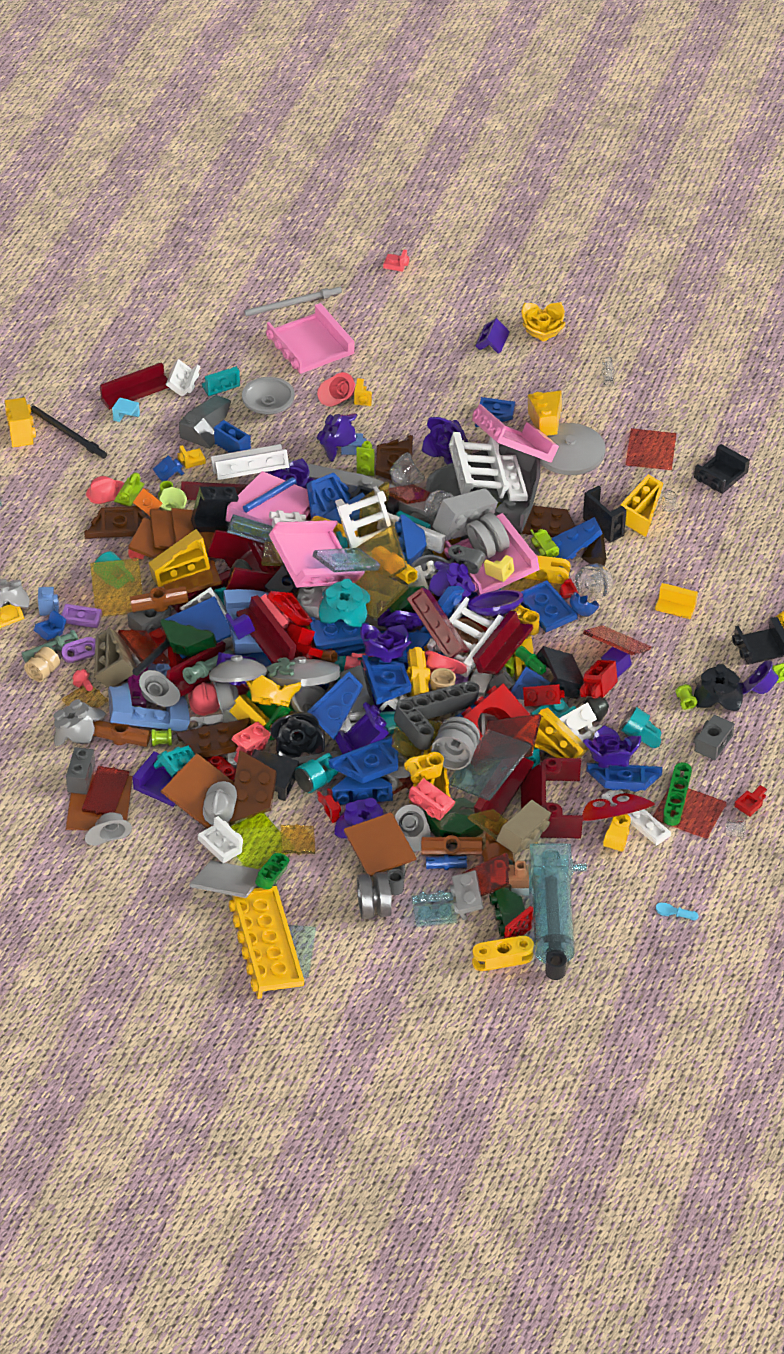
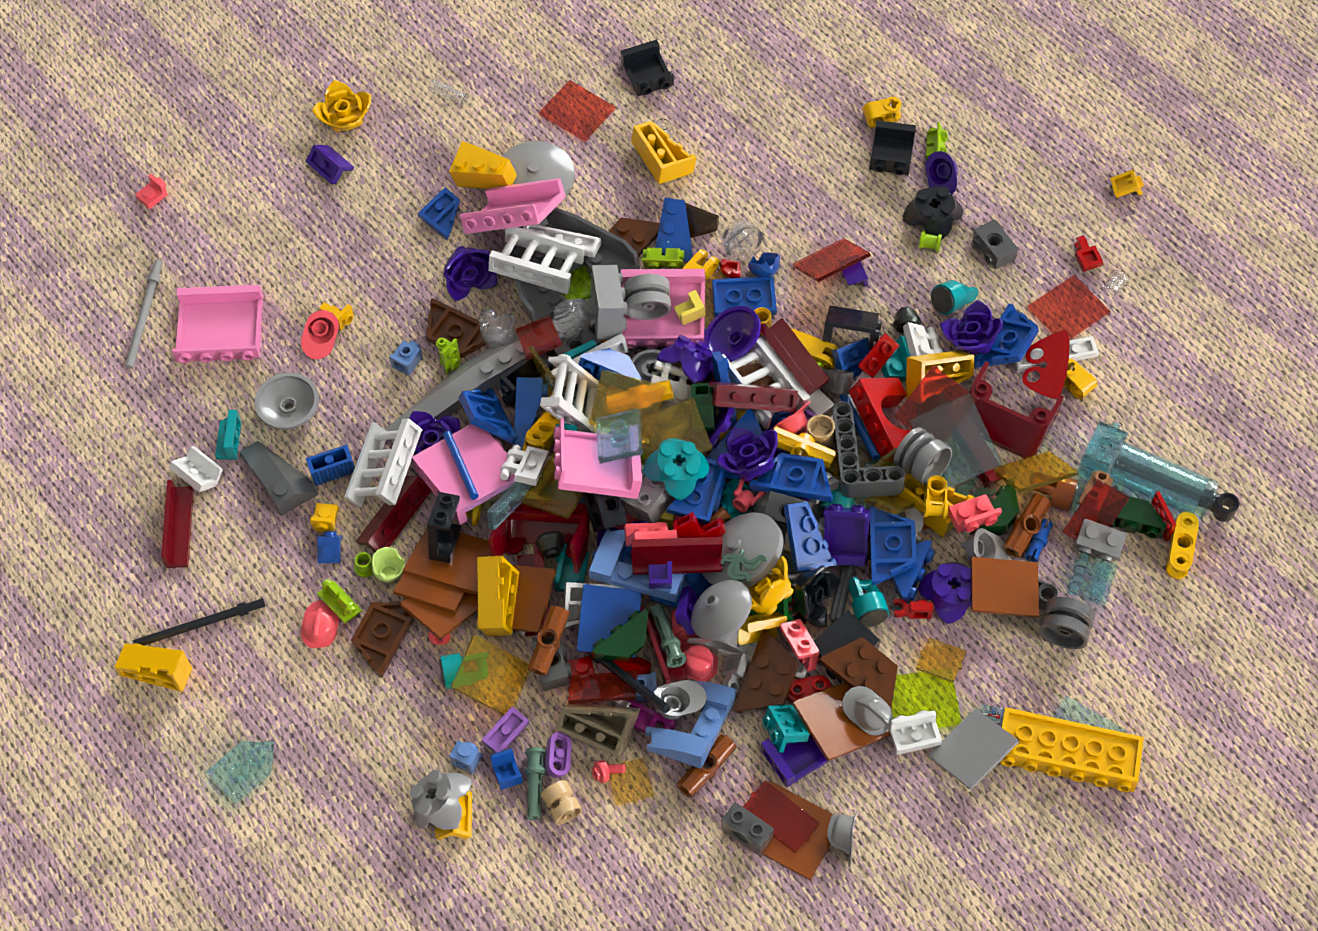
camera: 60 degrees left, 15 degrees up
(76, 723) = (693, 800): light grey brick -> none
(123, 407) = (209, 548): medium azure panel -> none
(147, 501) = (373, 590): orange bracket -> none
(161, 737) = (734, 726): lime bush -> none
(272, 871) = (999, 715): green beam -> none
(290, 607) = (657, 518): red wing -> none
(336, 433) = (407, 359): dark purple brick -> none
(470, 557) = (669, 330): dark grey piece -> none
(524, 827) = (1058, 451): dark tan wedge -> none
(531, 660) = (830, 342): green axle -> none
(599, 679) = (879, 298): red hinge -> none
(610, 523) = (652, 195): black panel -> none
(666, 910) = (1184, 385): medium azure piece -> none
(675, 793) = (1052, 305): green beam -> none
(676, 601) = (800, 189): yellow panel -> none

